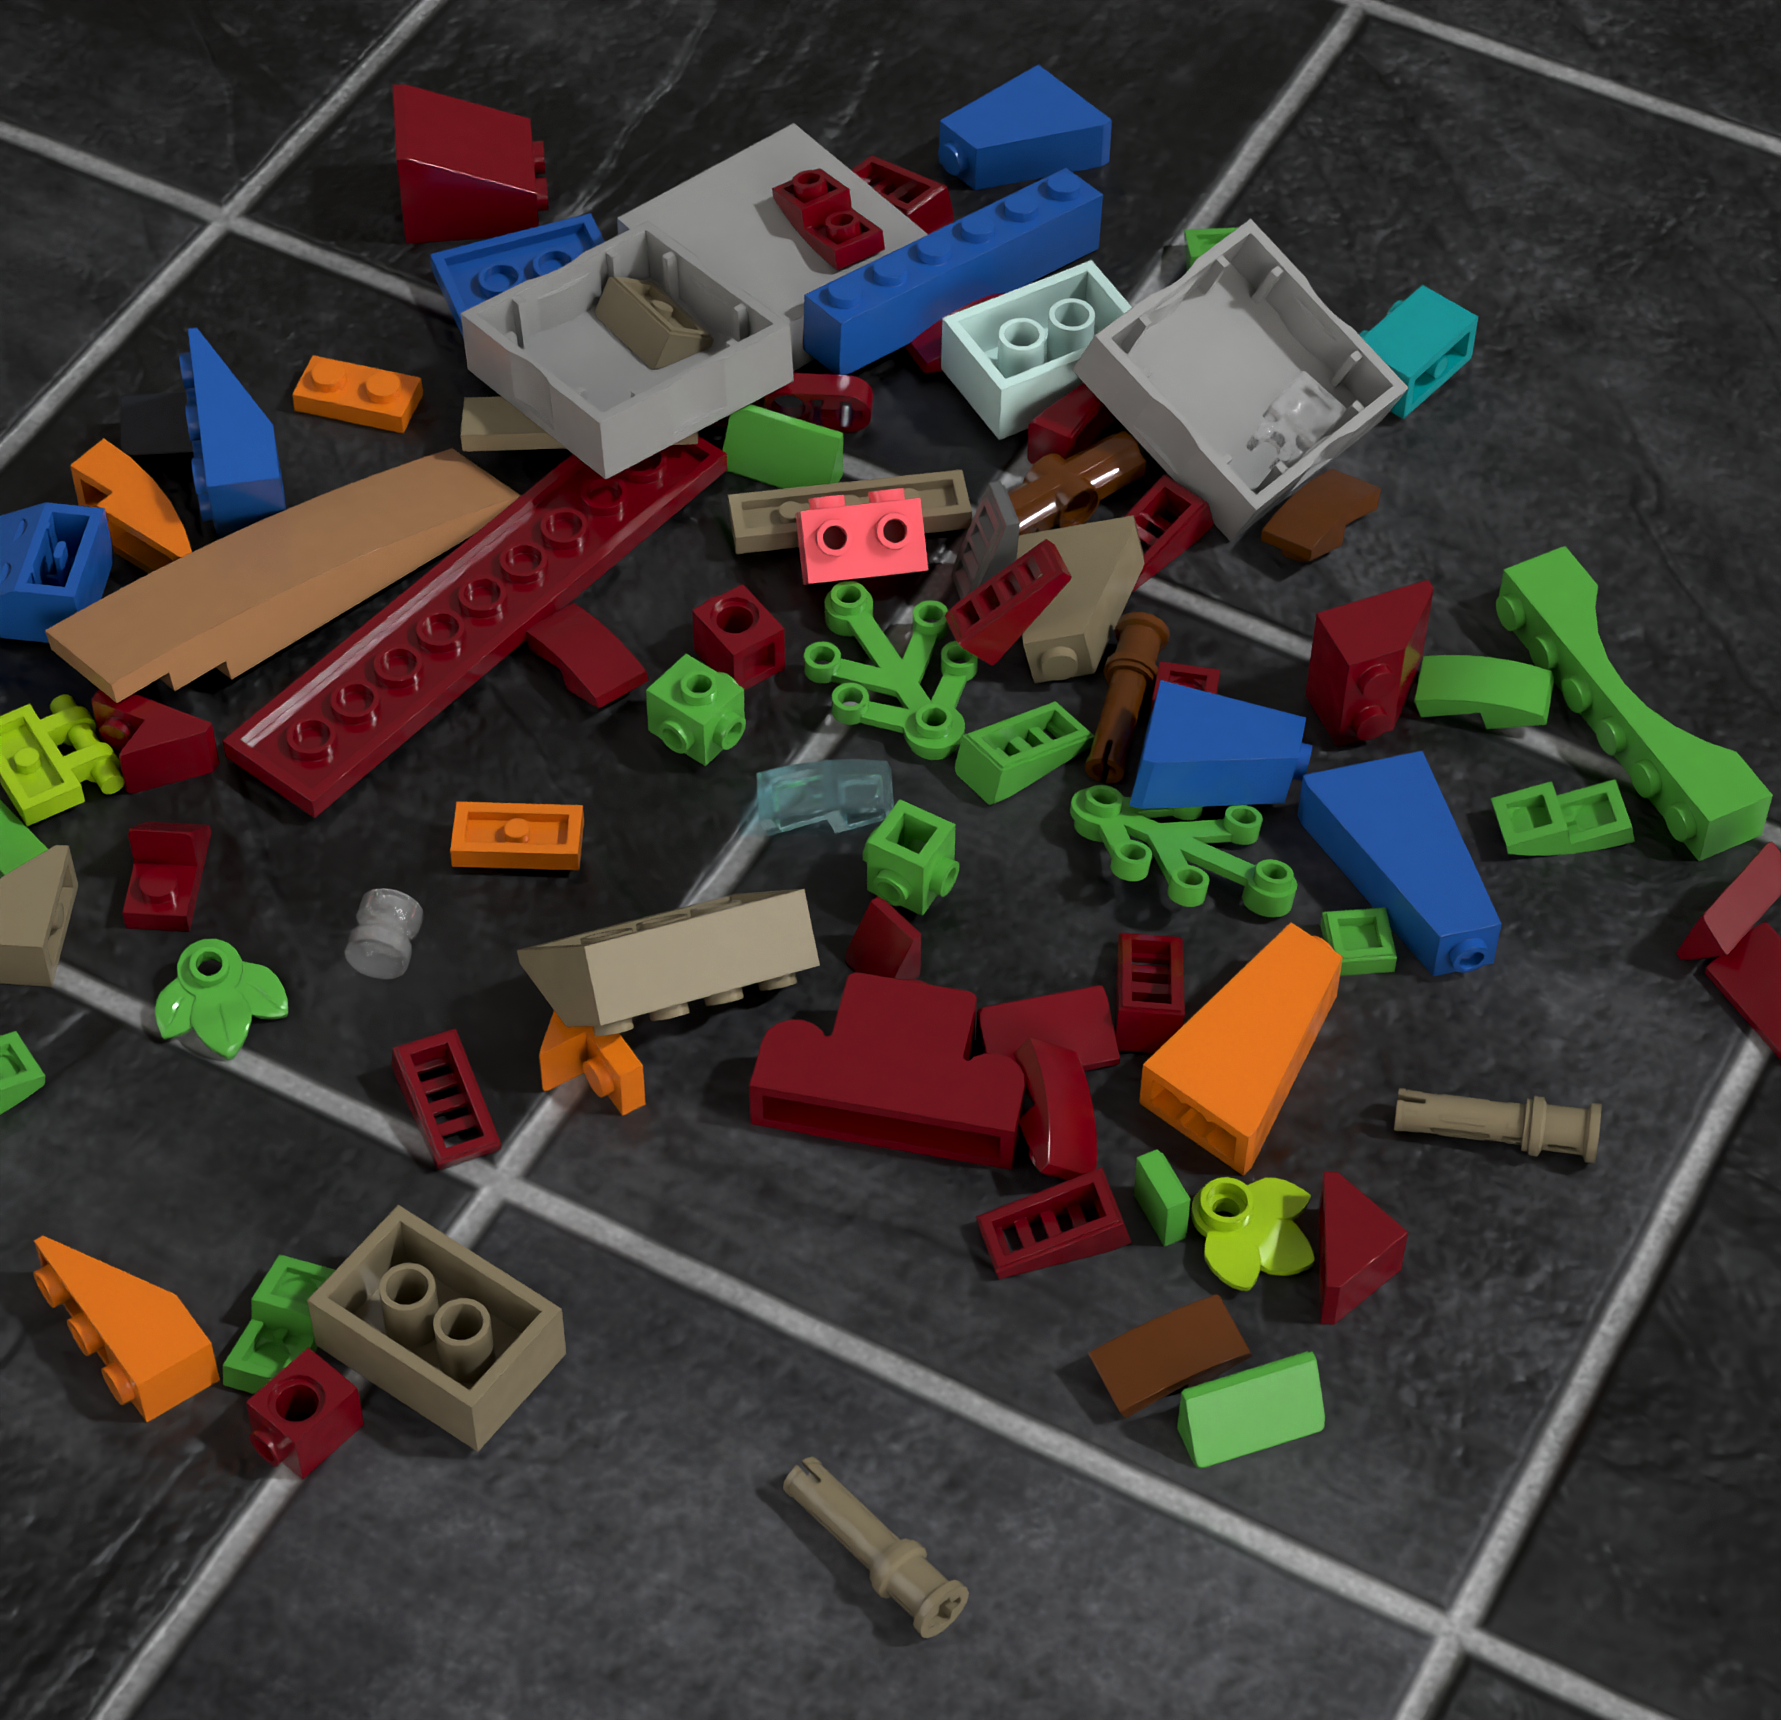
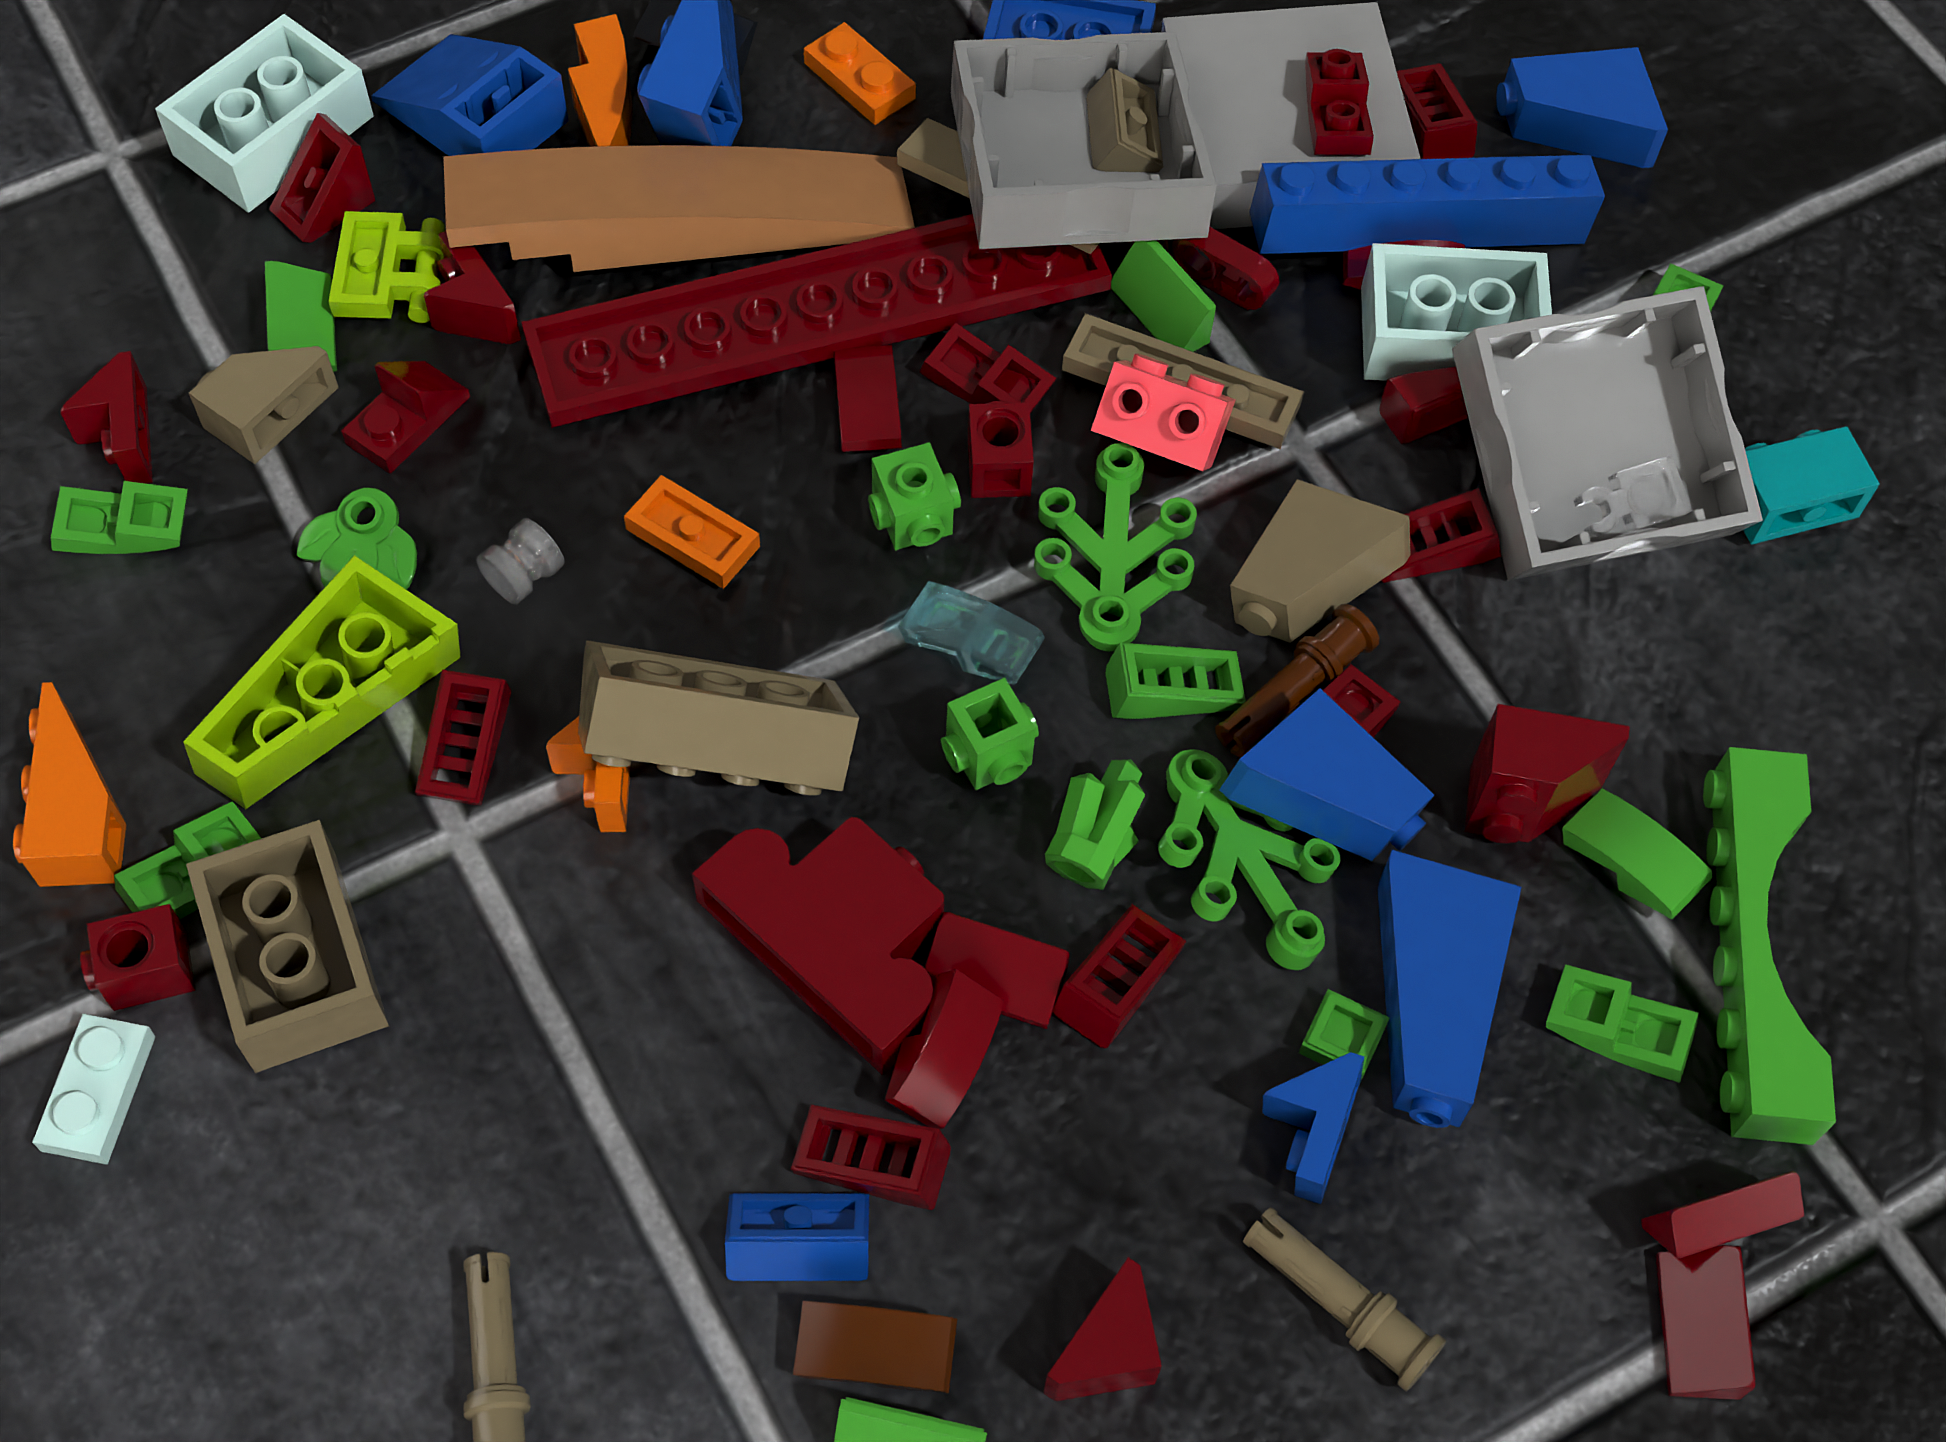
camera: 30 degrees right, 10 degrees up
(294, 1102) = (320, 682): none -> lime wedge
(343, 1541) = (94, 1089): none -> light aqua plate
(670, 592) = (982, 374): none -> dark red slope
(885, 944) = (914, 806): dark red slope -> none
(989, 543) = (1262, 484): dark grey slope -> none
(1008, 603) = (1238, 540): dark red slope -> none
(1041, 1319) = (797, 1237): none -> blue slope
(1049, 885) = (1096, 825): none -> bright green rock
(1071, 489) = (1380, 456): reddish brown piece -> none
(1161, 1197) = (978, 1187): bright green tile -> none
(1243, 1049) = (1161, 1083): orange slope -> none
(1259, 1233) = (1043, 1275): lime plate -> none
(1318, 513) = (1595, 598): reddish brown slope -> none
(1386, 998) = (1321, 1104): none -> blue slope

